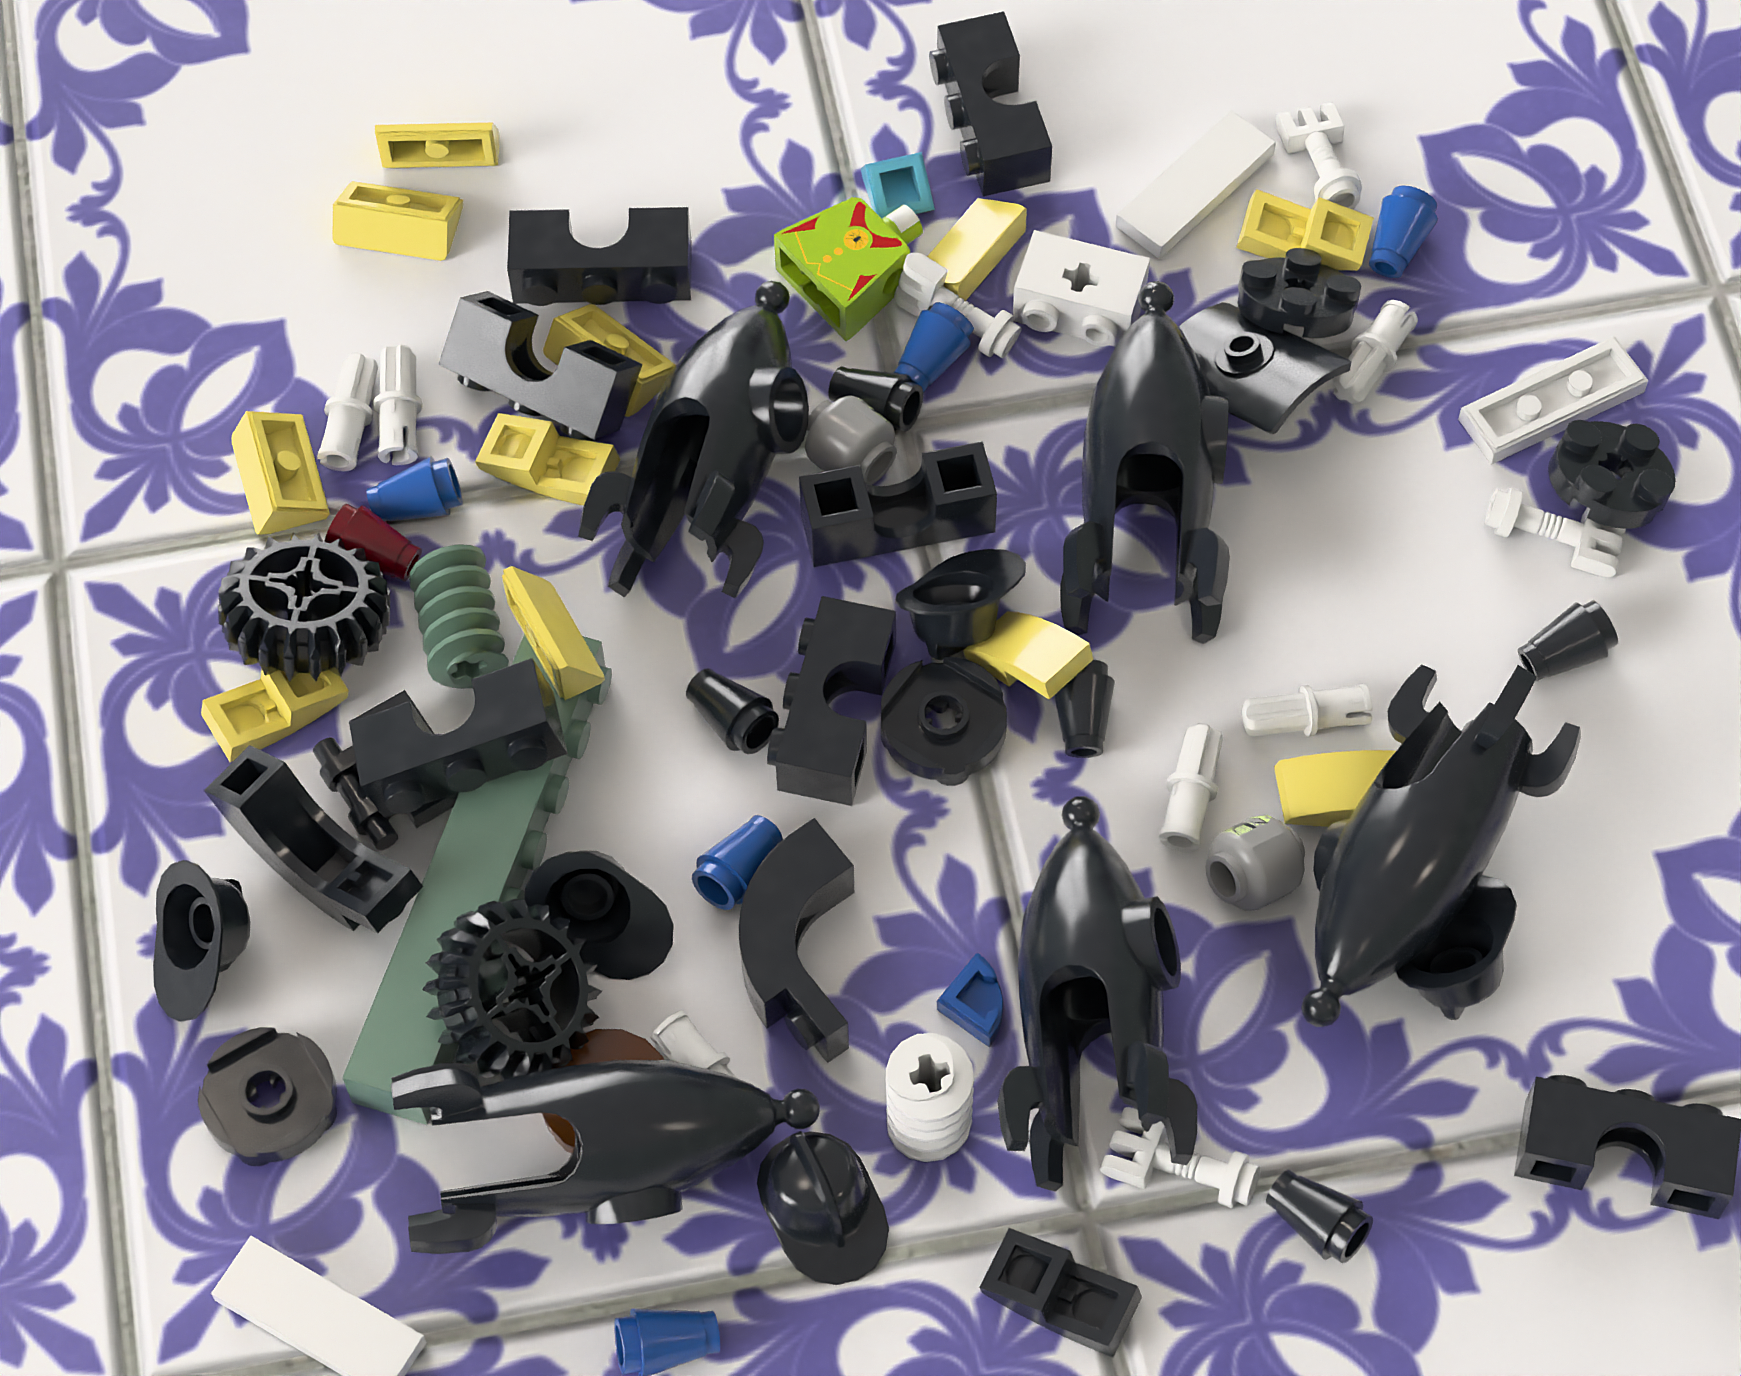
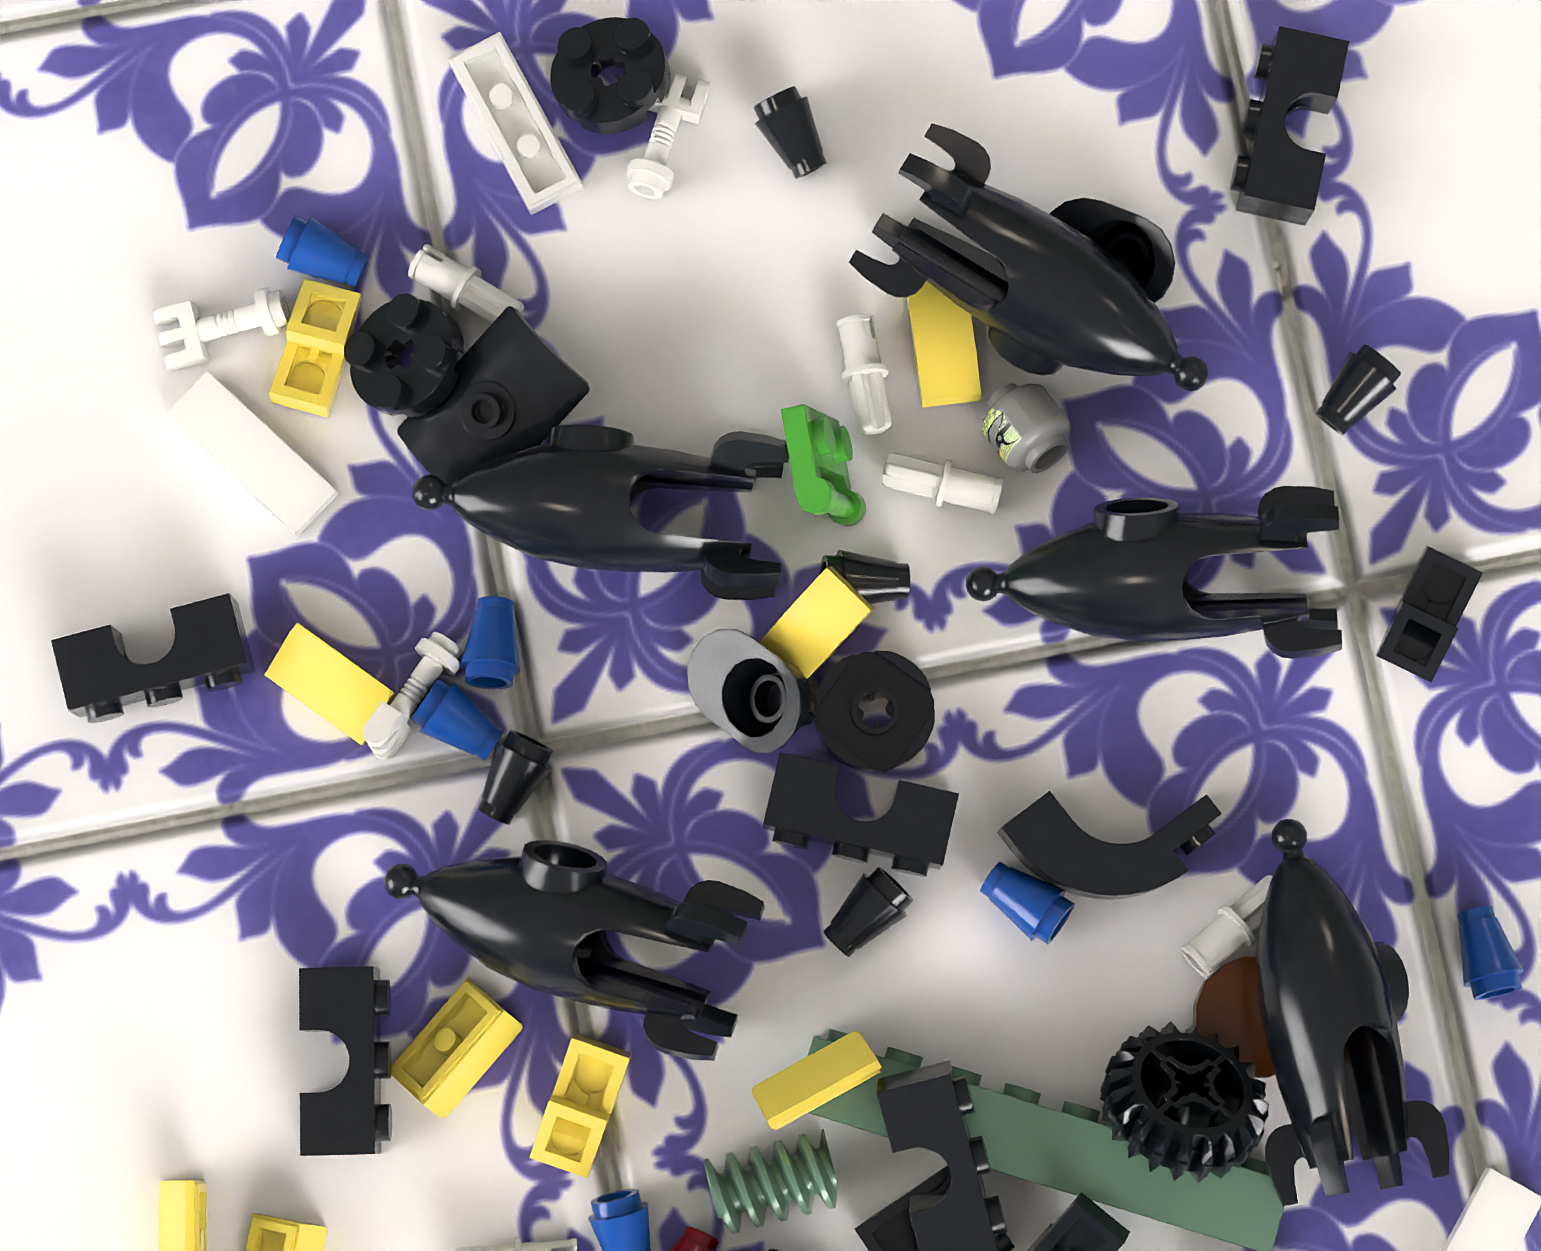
camera: 95 degrees left, 20 degrees up
(494, 351) = (472, 1159): arch -> none
(616, 913) = (1085, 1029): black piece -> none
(823, 1207) = (1357, 817): black piece -> none
(847, 260) = (350, 803): lime torso -> none
(850, 435) = (572, 800): light grey head -> none
(898, 183) = (247, 757): medium azure slope -> none
(929, 1097) = (1280, 698): white piece -> none
(941, 503) = (652, 751): black arch -> none
(974, 1000) = (1155, 684): blue tile -> none
(1008, 377) = (492, 646): none -> blue cone
(1079, 289) = (385, 538): white brick -> none
(1221, 647) = (819, 466): none -> bright green plate
(1234, 1179) = (1326, 461): white hinge -> none

